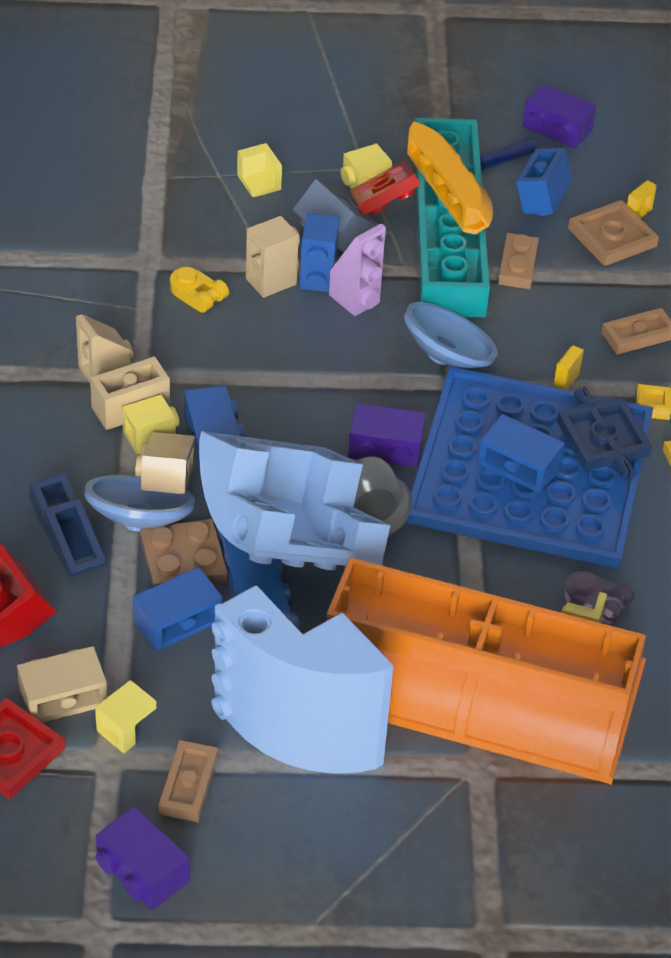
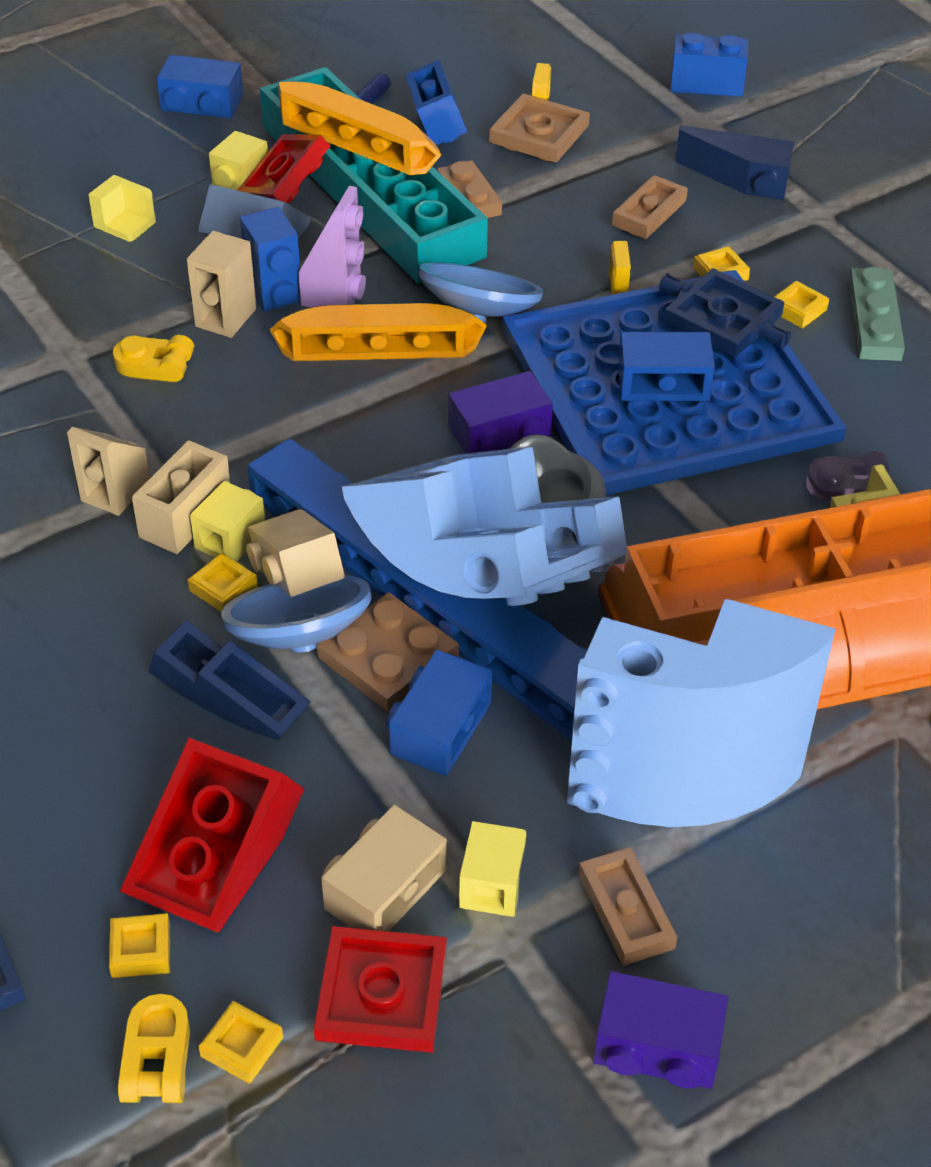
camera: 30 degrees left, 0 degrees up
(117, 459) = (222, 581): none -> yellow tile
(358, 339) = (378, 332): none -> light orange brick
(389, 96) = (200, 86): none -> blue brick
(559, 115) = (388, 41): dark purple brick -> none

